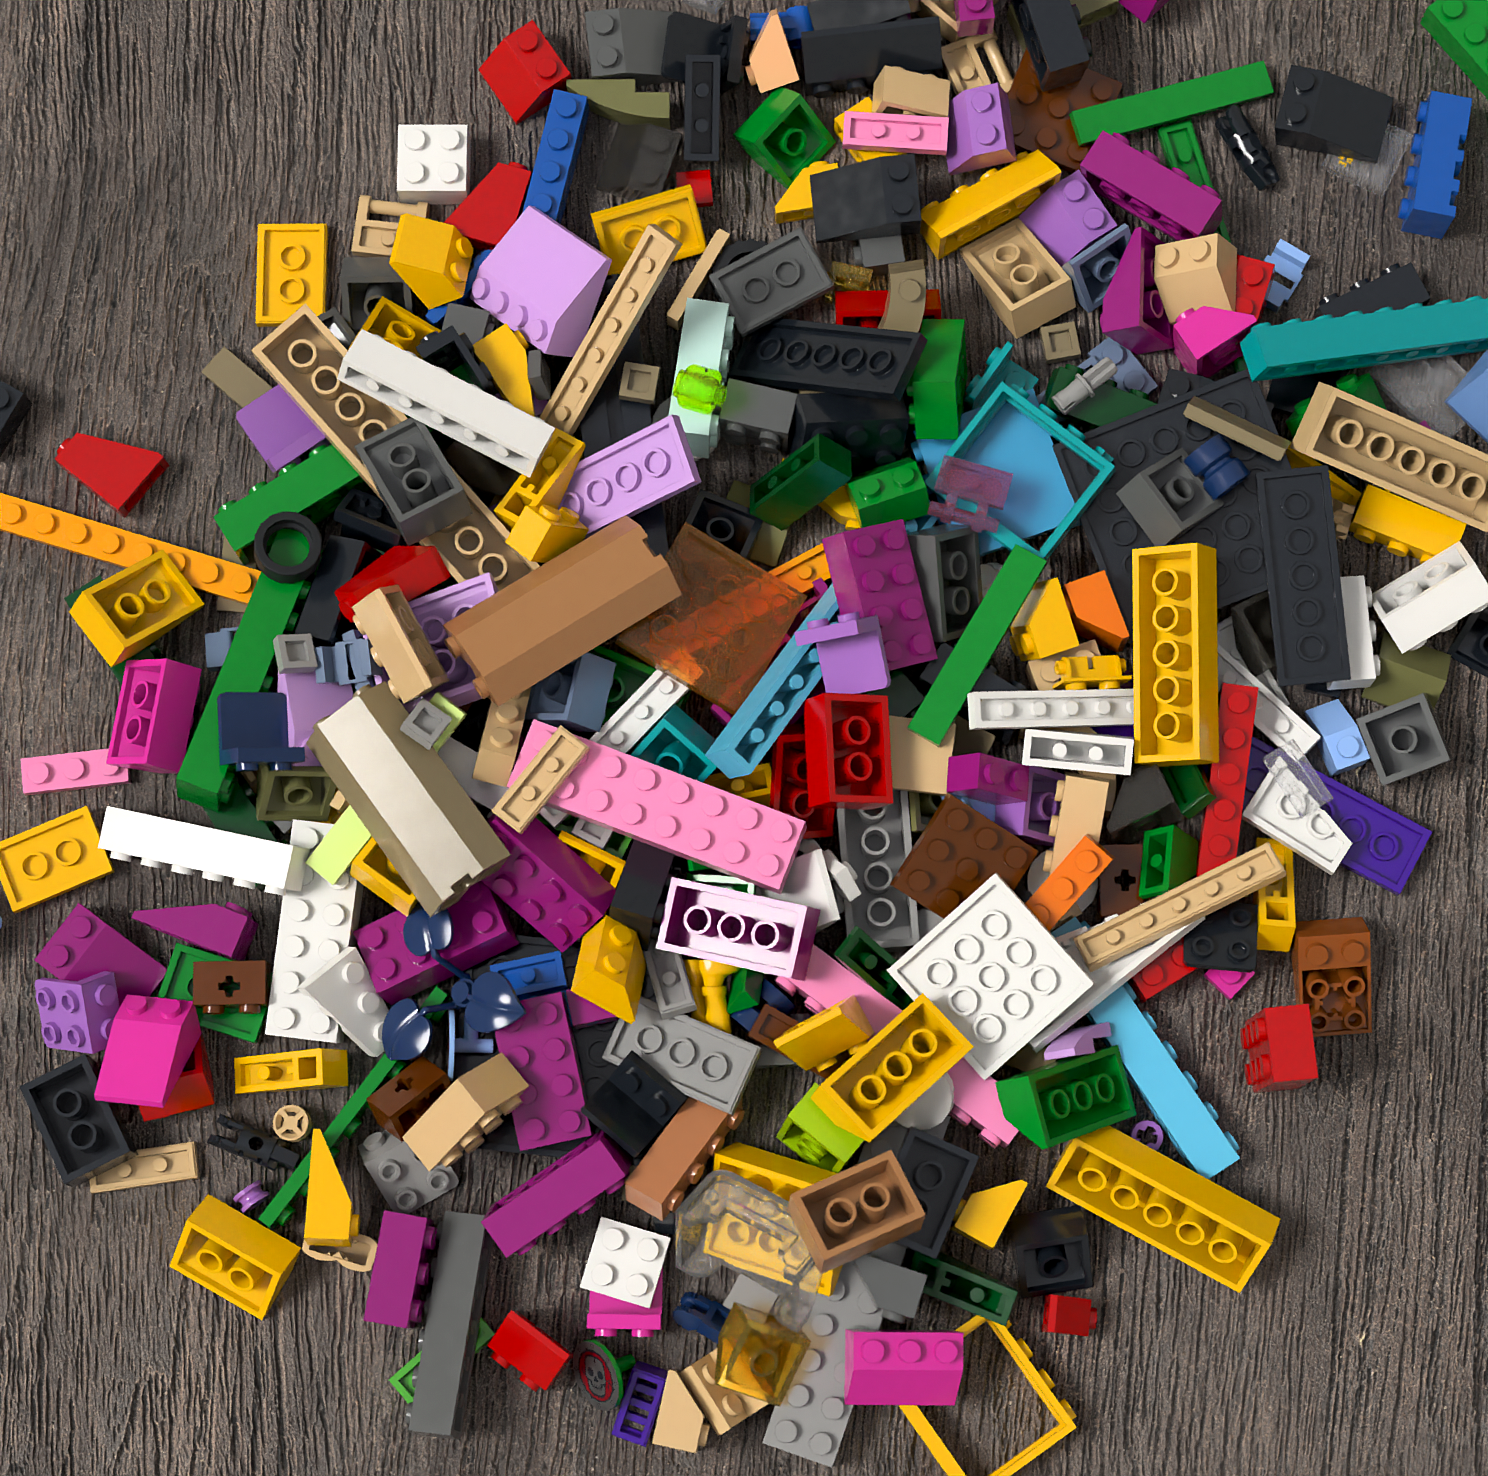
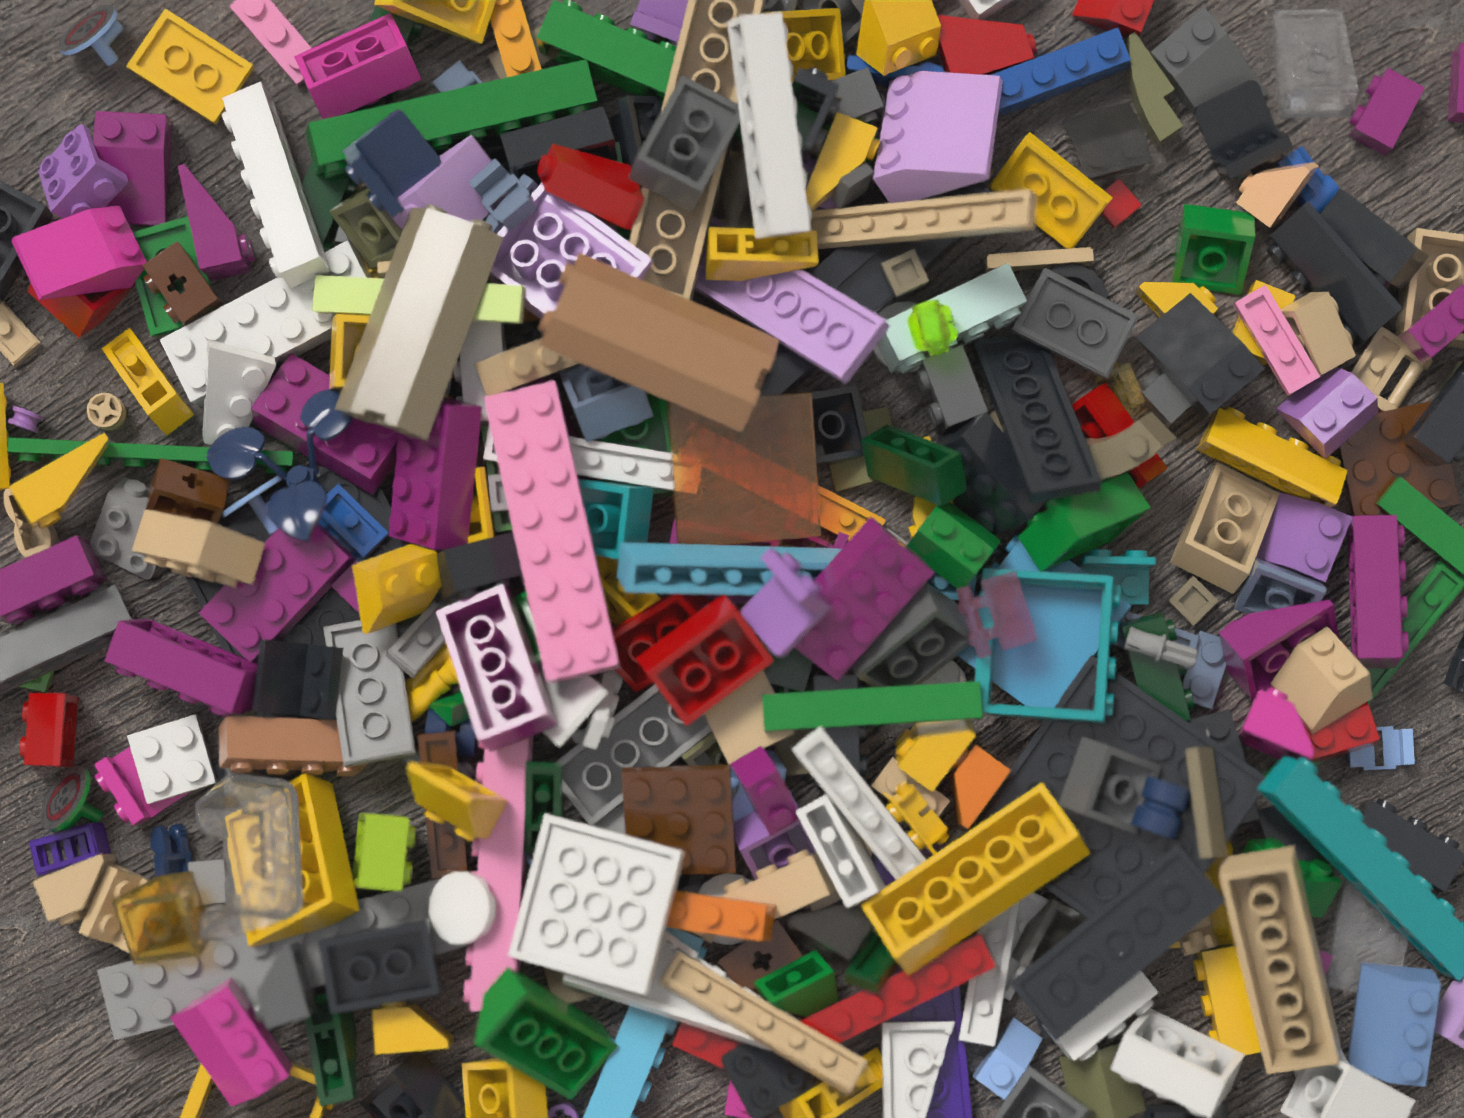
camera: 50 degrees right, 5 degrees up
(269, 1156) = (72, 410): black hinge -> none
(281, 521) = (574, 53): black tyre -> none
(295, 653) = (479, 147): light grey plate -> none
(399, 643) = (539, 228): tan slope -> none
(425, 724) = (487, 295): light grey plate -> none
(540, 779) = (505, 421): tan tile -> none
(546, 532) = (718, 284): yellow brick -> none
(701, 107) = (1187, 162): black brick -> none
(856, 1211) = (319, 923): medium nougat brick -> none
(892, 1070) = (458, 875): yellow slope -> none
(1076, 1041) = (595, 1010): lavender slope -> none
(1297, 778) = (944, 1050): clear tile -> none

